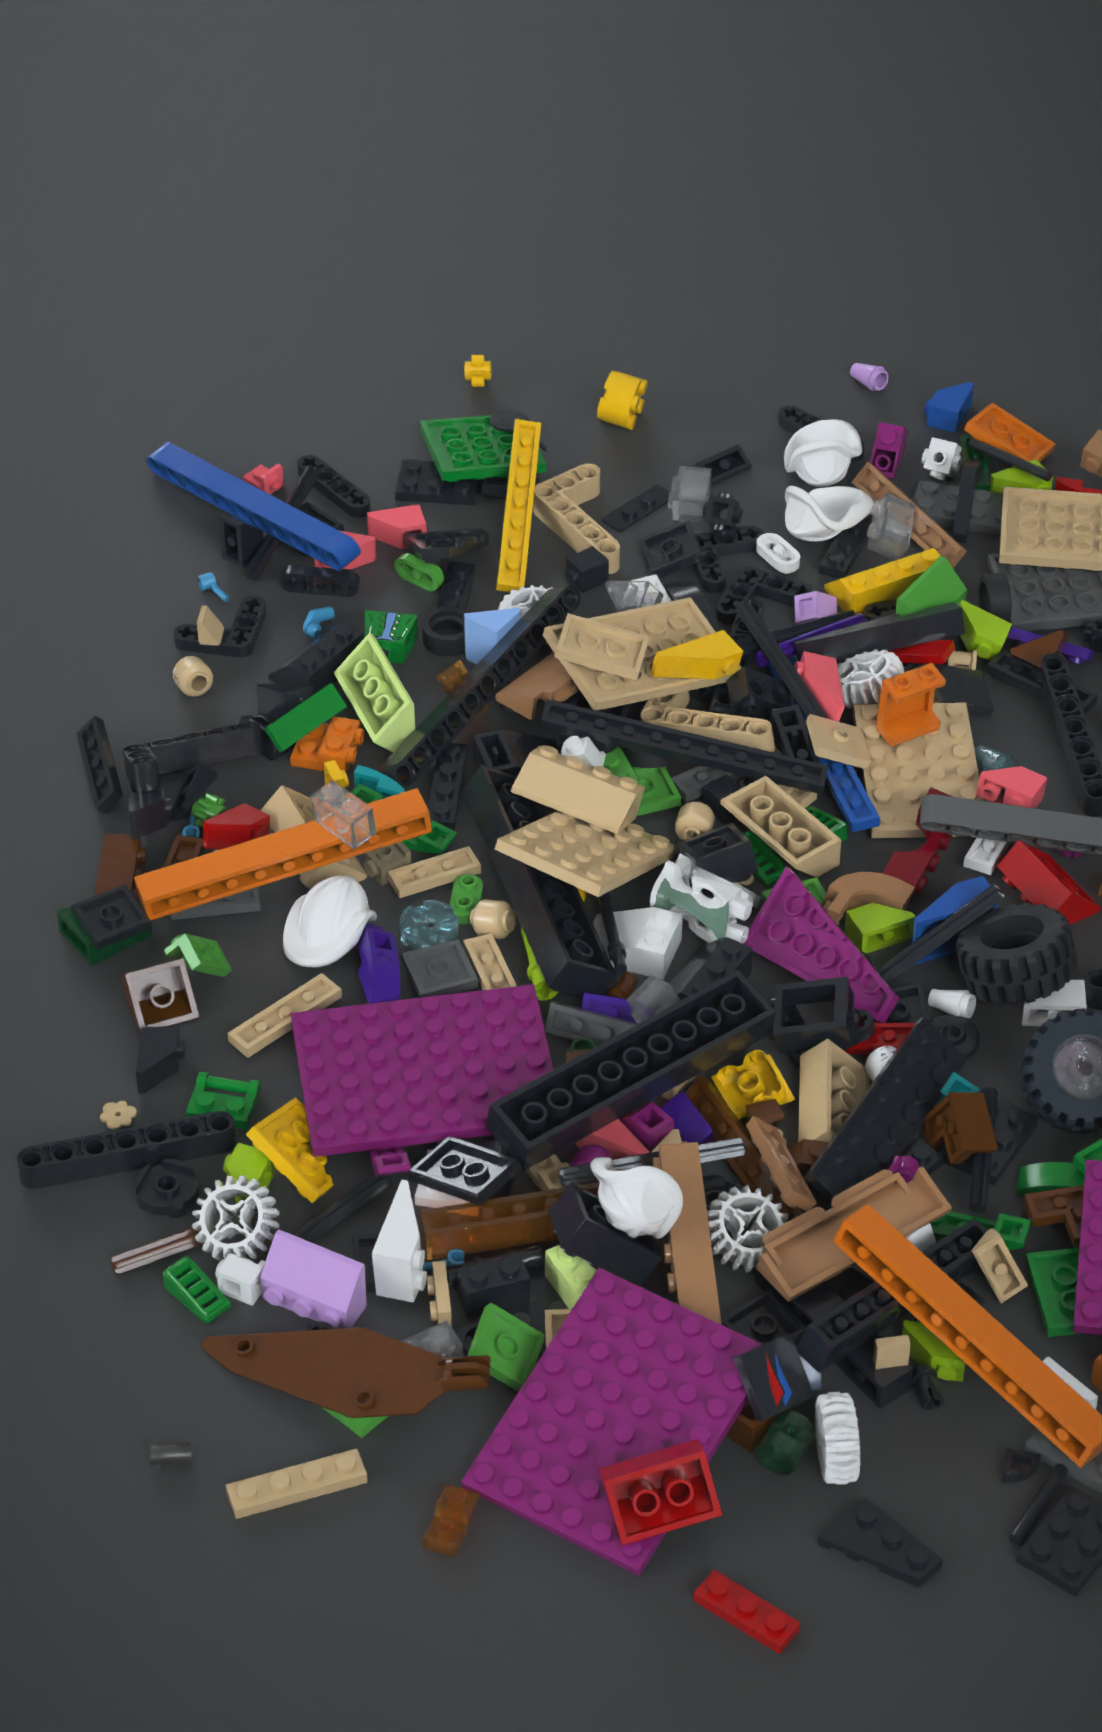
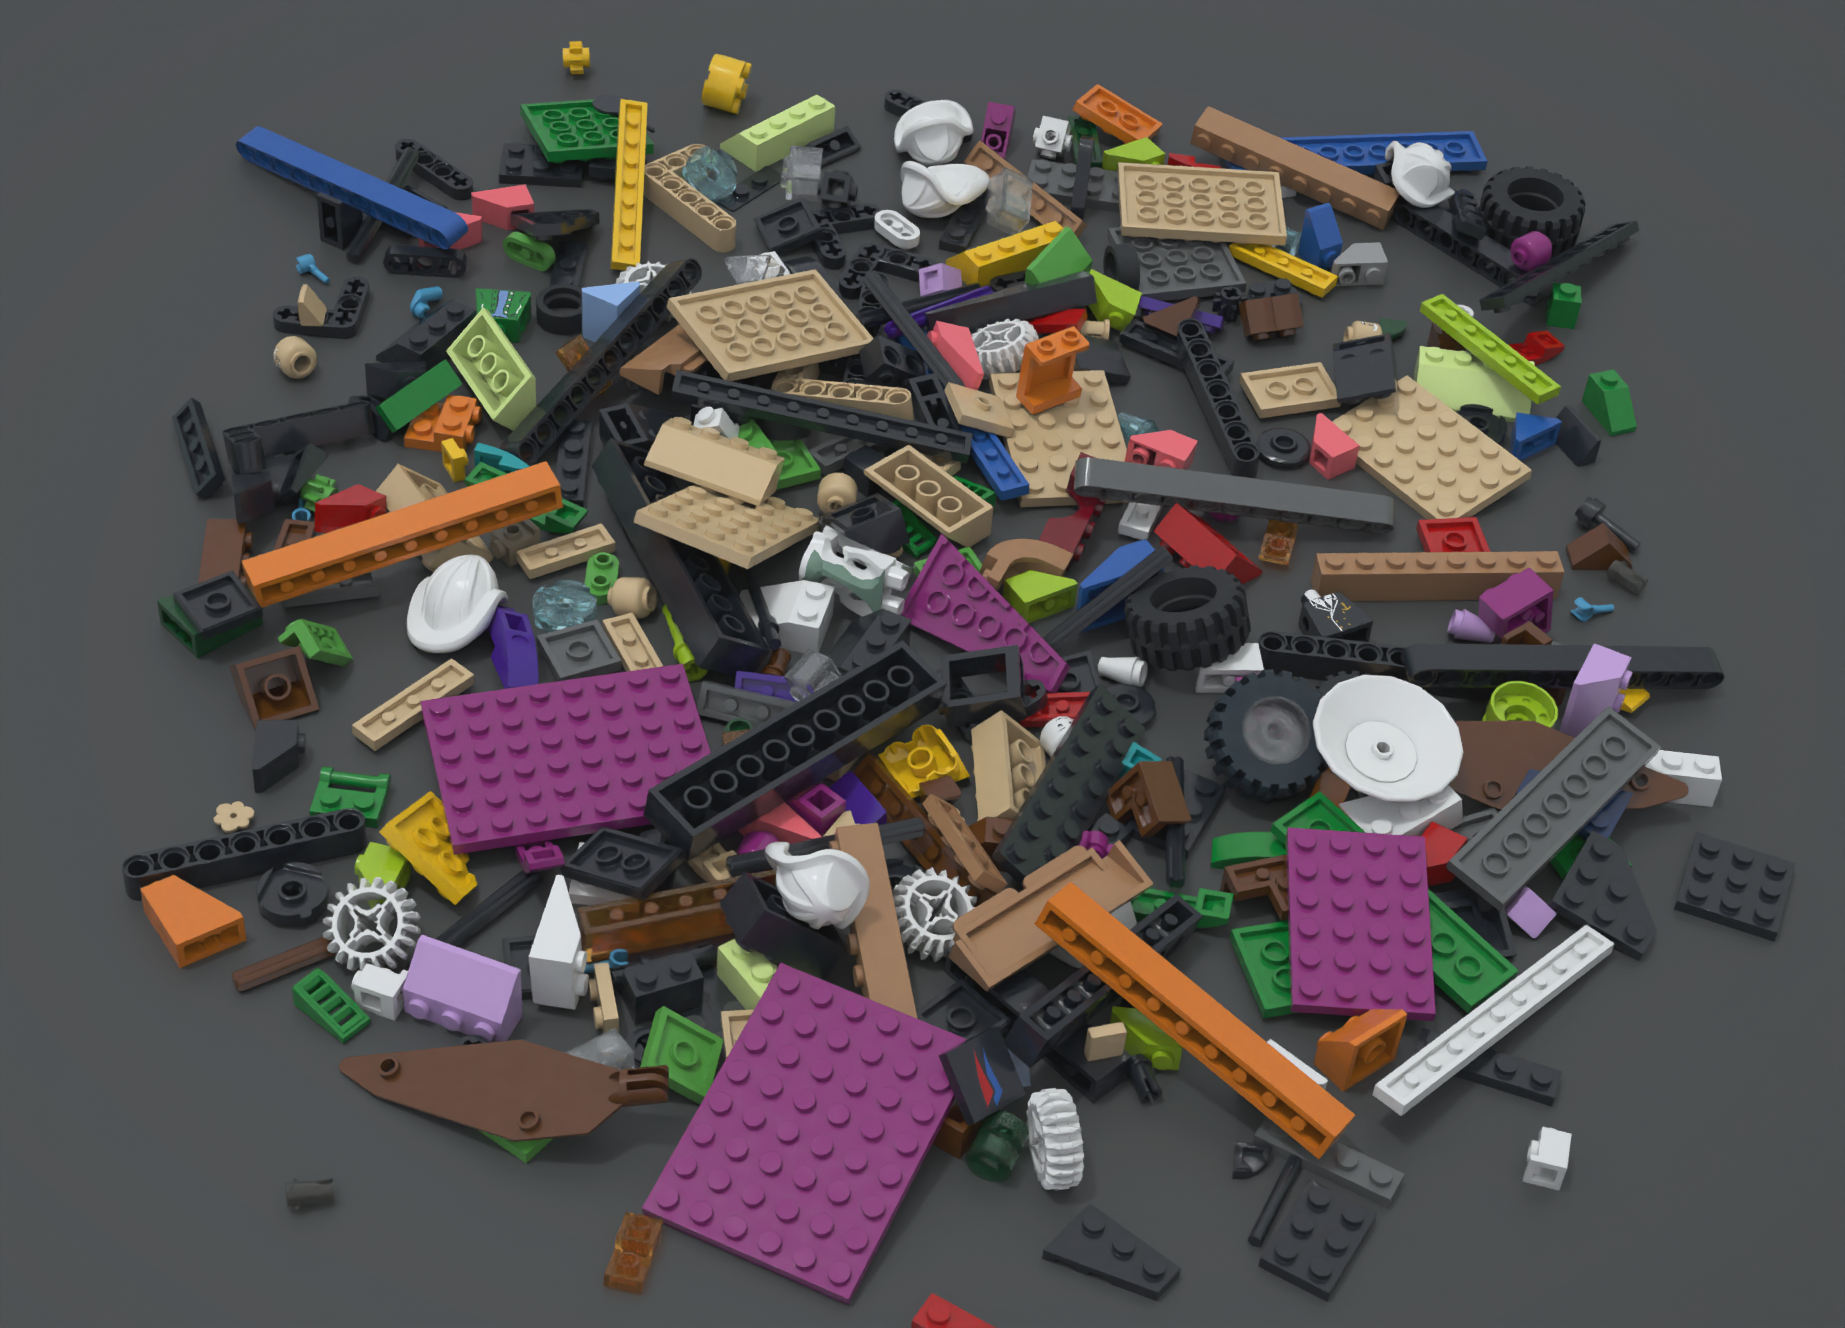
camera: 10 degrees left, 0 degrees up
(76, 1208) = (191, 920): none -> orange slope
(266, 479) = (364, 161): coral bracket -> none
(296, 1483) = (455, 1219): tan plate -> none
(343, 814) = (468, 489): clear brick -> none
(587, 569) = (704, 245): black brick -> none
(601, 647) = (730, 317): tan plate -> none
(603, 481) = (710, 160): none -> clear light blue plate
(660, 1491) = (869, 1209): red slope -> none
(681, 447) = (773, 137): none -> yellowish green slope
(701, 658) = (831, 328): yellow slope -> none
(870, 375) = (971, 61): lavender cone -> none
(949, 407) = (1053, 90): blue slope -> none
(998, 1266) = (1206, 943): tan slope -> none
(1010, 459) = (1122, 137): black bar -> none

